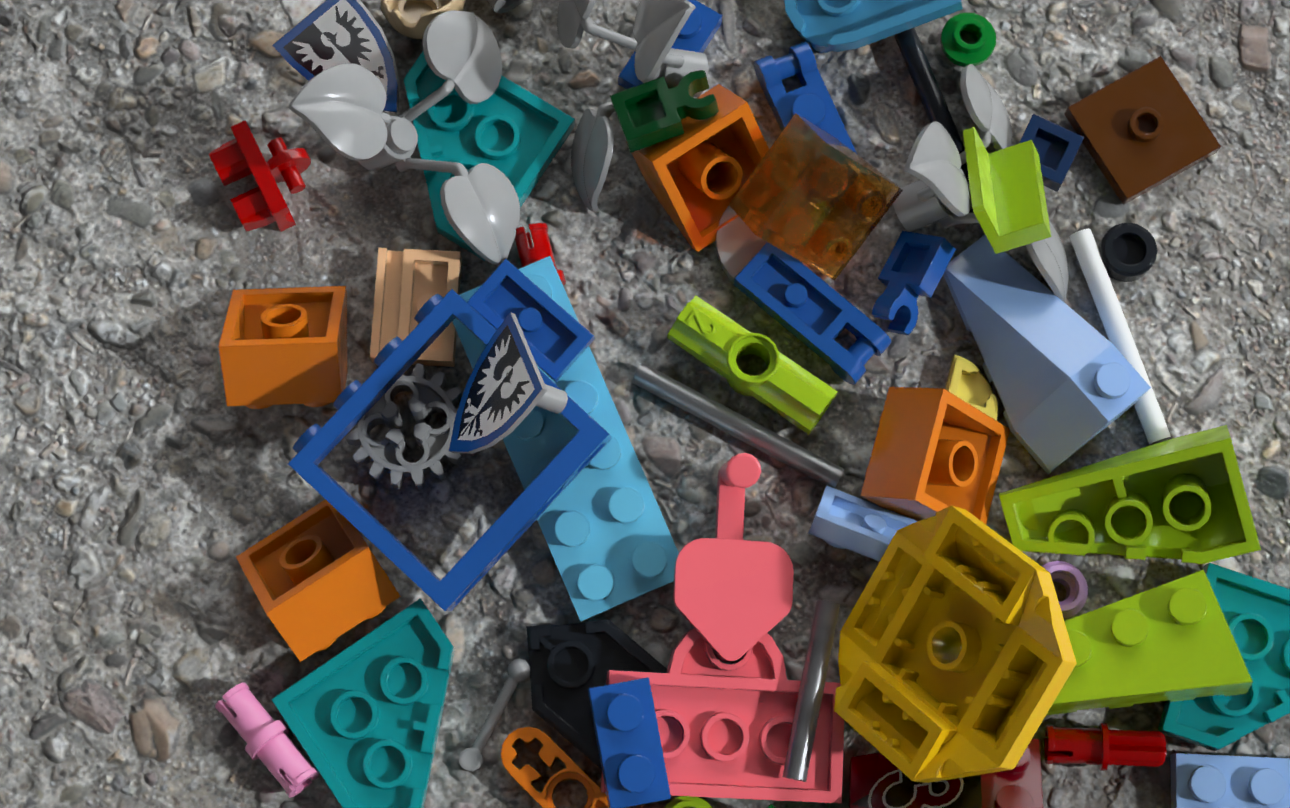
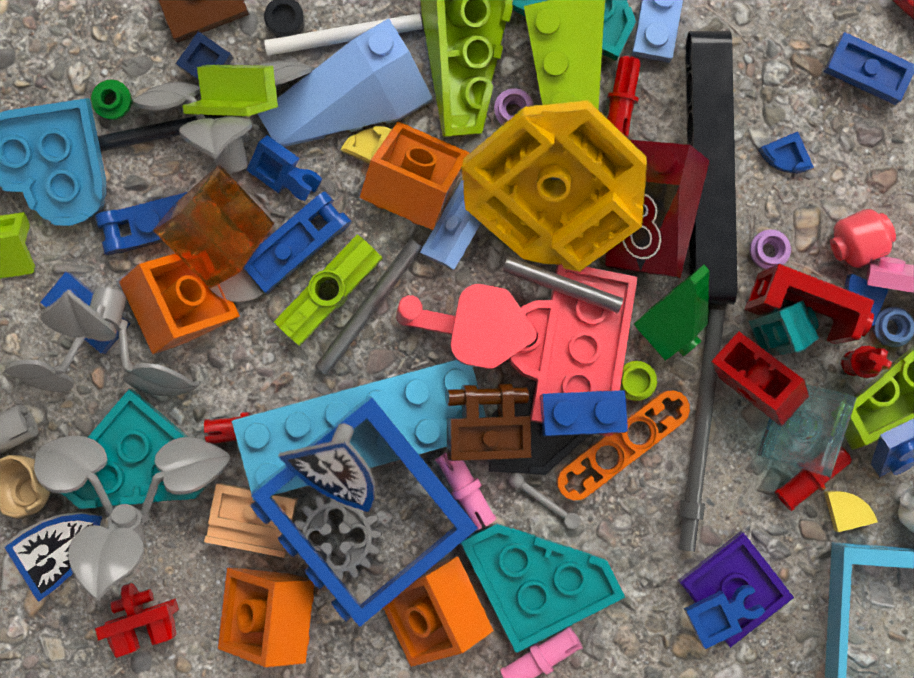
camera: 75 degrees left, 10 degrees up
(497, 597) = (466, 491): none -> bright pink pin
(549, 330) = (288, 431): blue plate -> none
(576, 612) = (488, 437): none -> reddish brown plate
(654, 112) = (136, 332): dark green plate -> none

